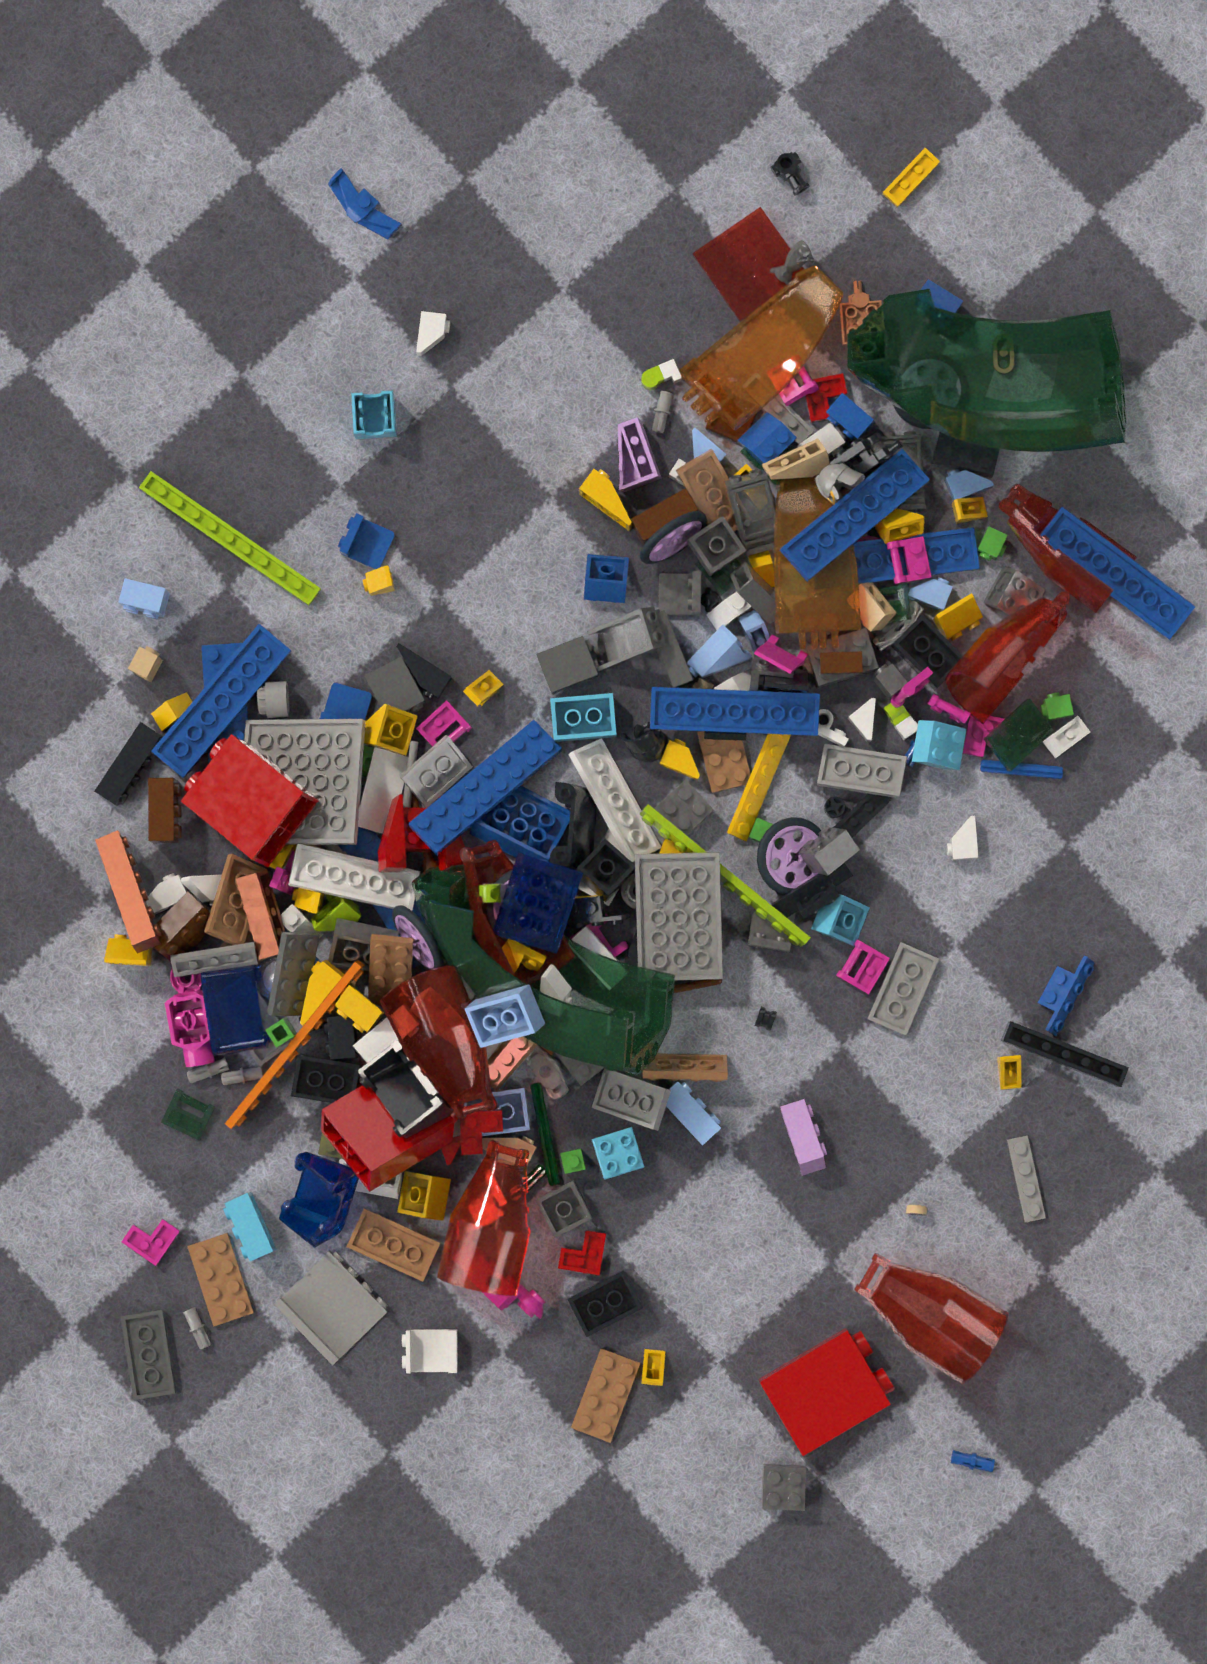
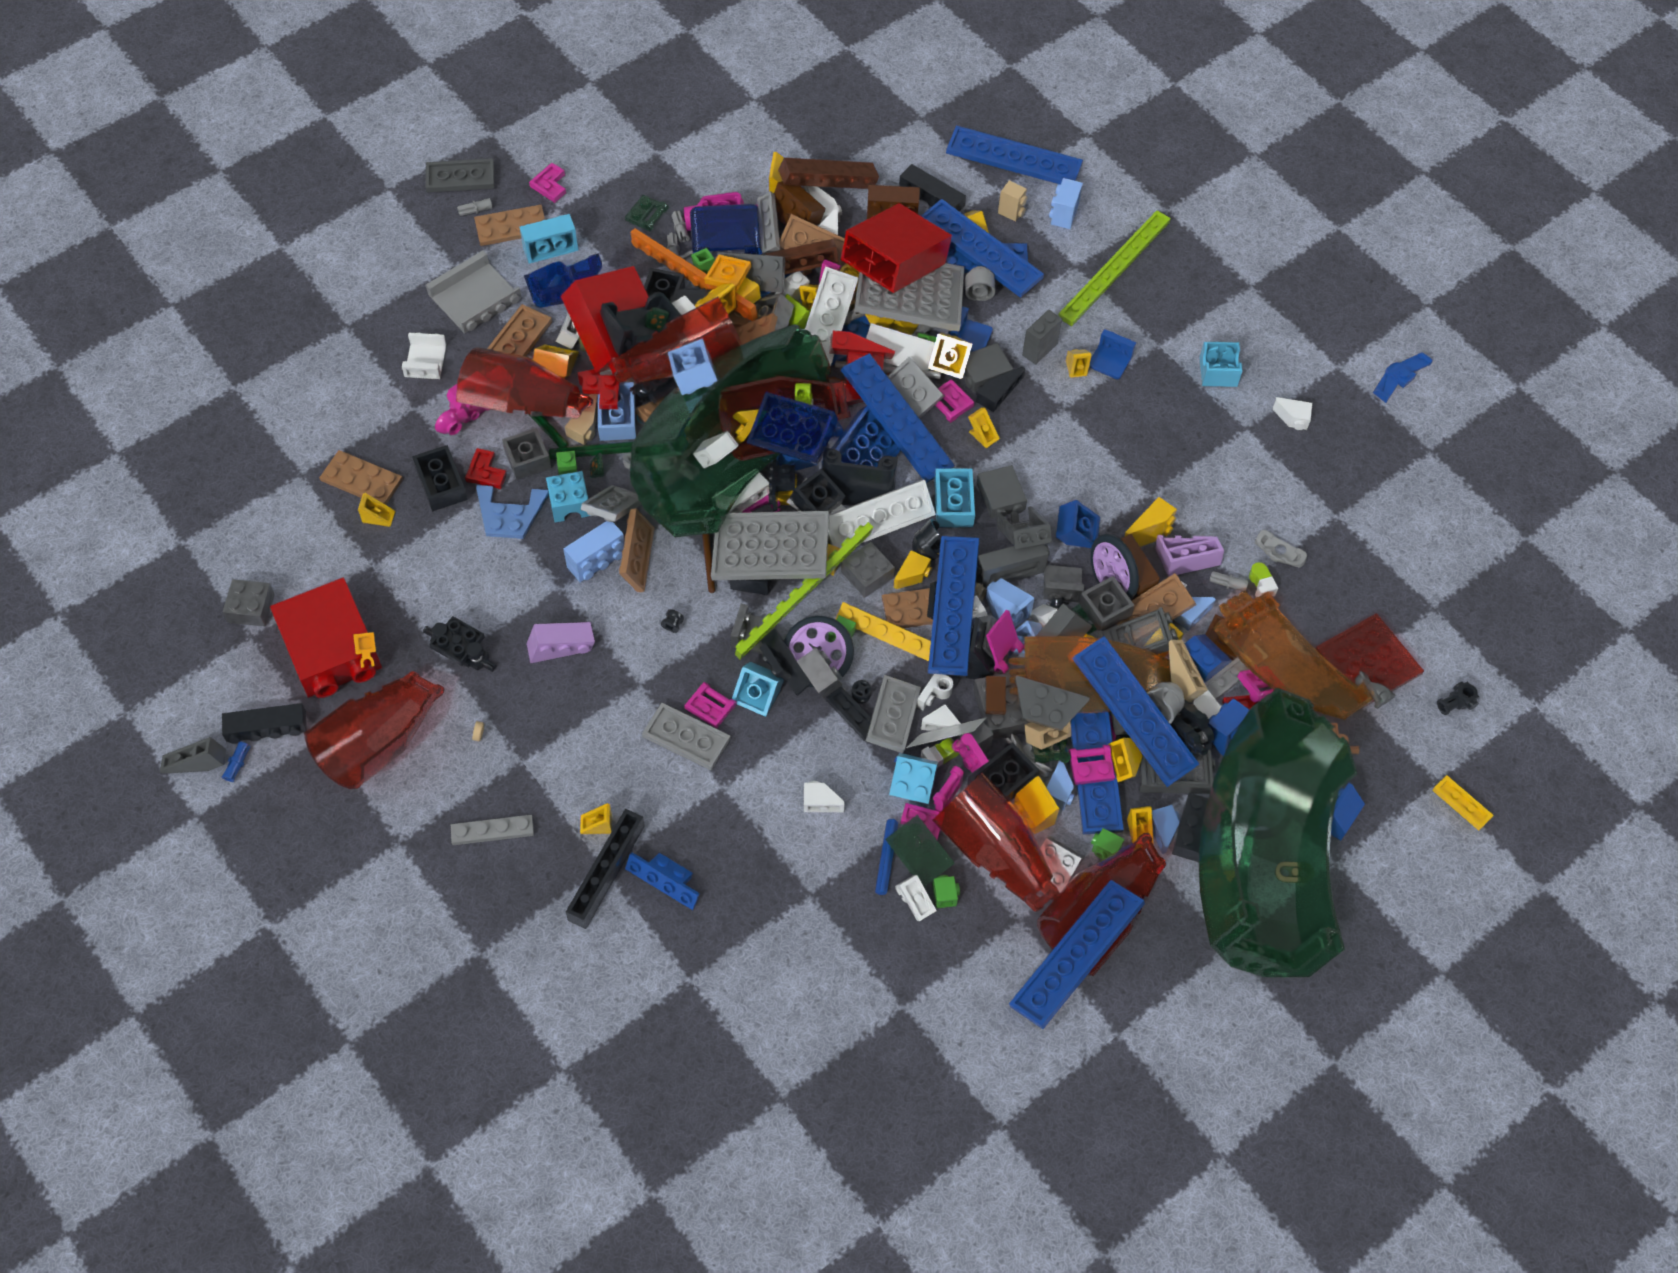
camera: 85 degrees right, 25 degrees down
(62, 664) = (1013, 156): none -> blue plate
(308, 999) = (727, 271): none -> light orange plate
(355, 623) = (1042, 336): none -> dark grey brick
(391, 1076) = (656, 318): none -> clear green slope
(569, 1128) = (597, 466): none -> clear green slope
(624, 341) = (1292, 556): none -> light grey piece
(646, 1220) = (508, 519): none -> medium blue wing
(817, 1247) = (459, 643): none -> black piece
(849, 1341) = (365, 645): none -> light orange plate
(856, 606) = (1048, 704): none -> dark grey wing
(890, 712) = (947, 732): none -> white sticker
(926, 1439) = (264, 723): none -> black brick
(974, 1506) = (194, 758): none -> dark grey slope

